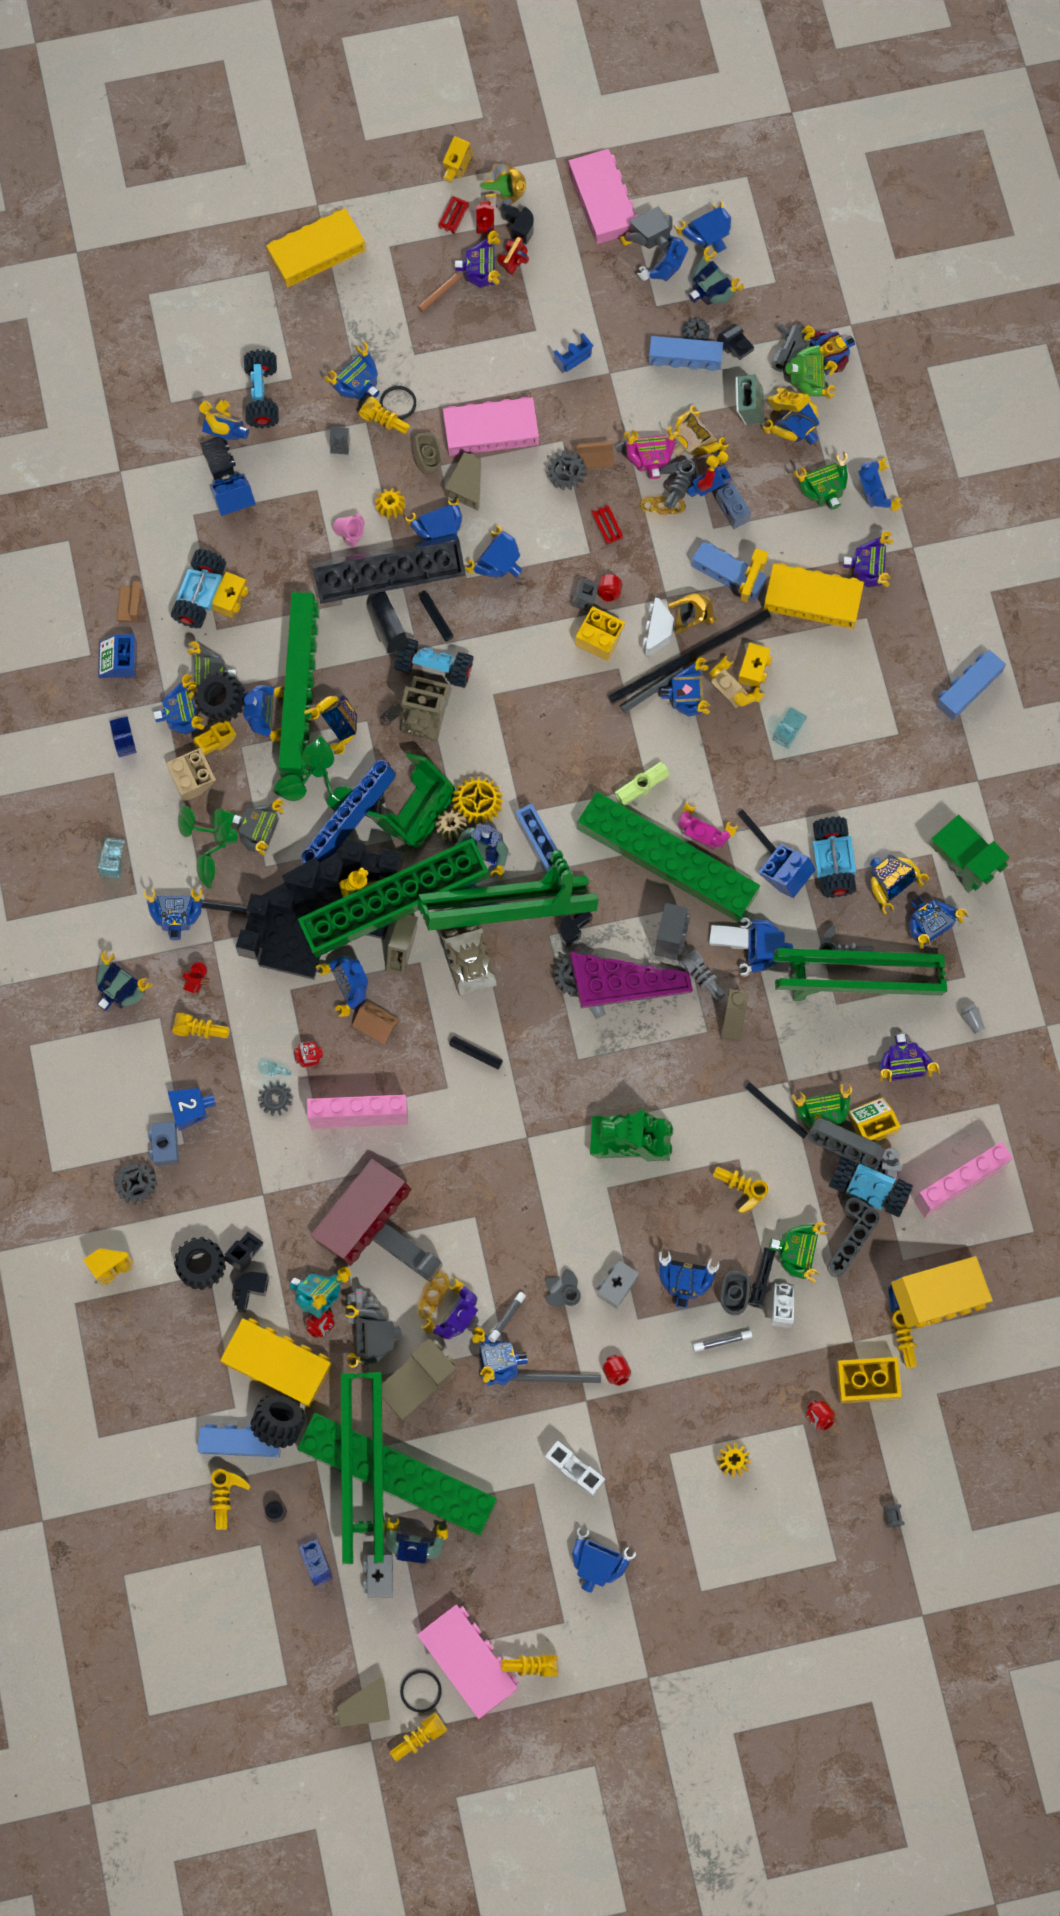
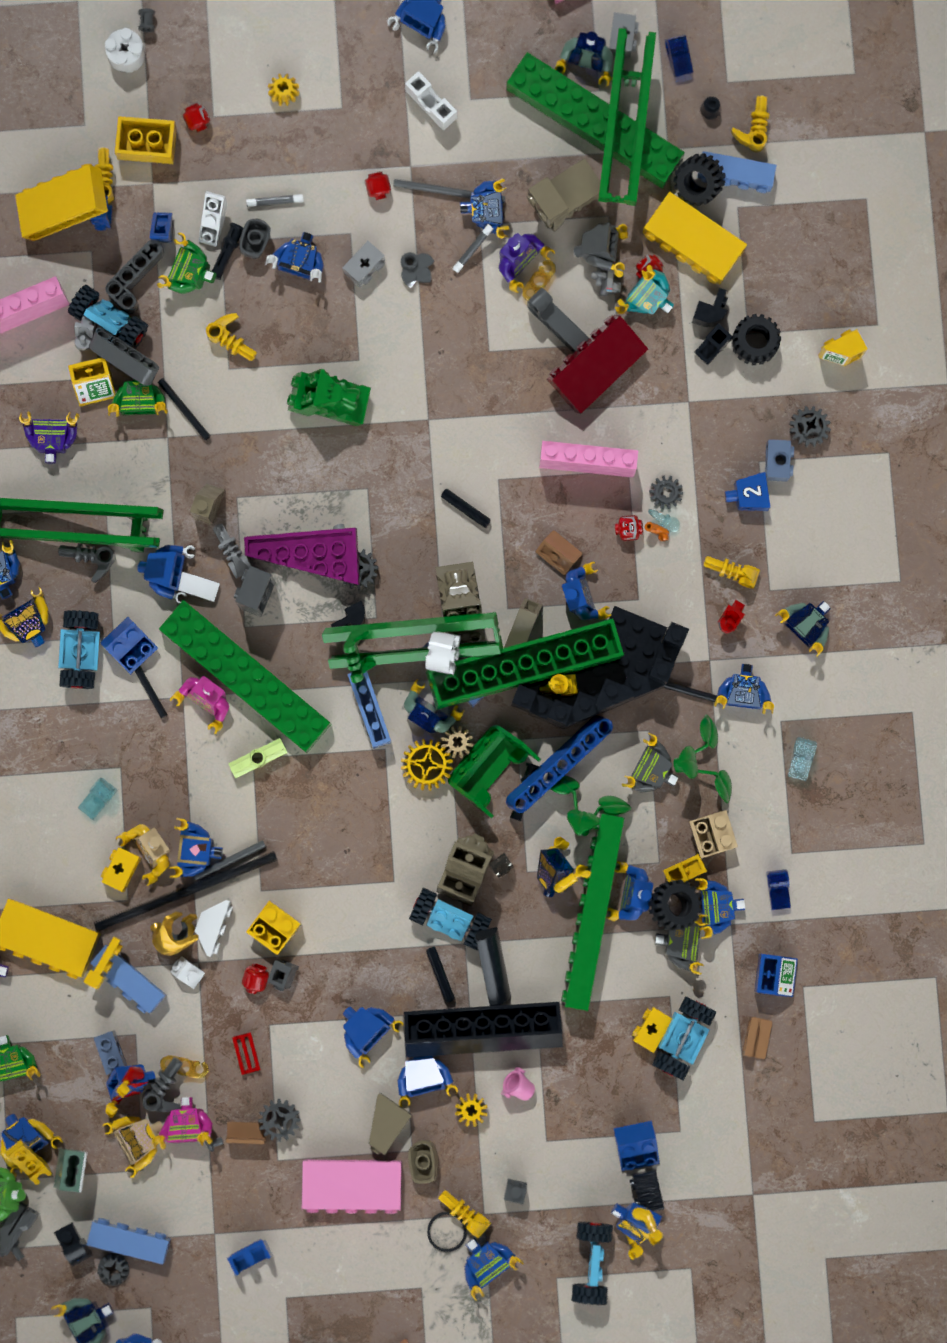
camera: 175 degrees left, 10 degrees up
(279, 1058) = (657, 529): none -> orange arm
(476, 883) = (443, 652): none -> white brick
(675, 584) = (187, 972): none -> white bracket
(834, 1290) = (161, 227): none -> blue slope
(921, 1476) = (125, 40): none -> white brick

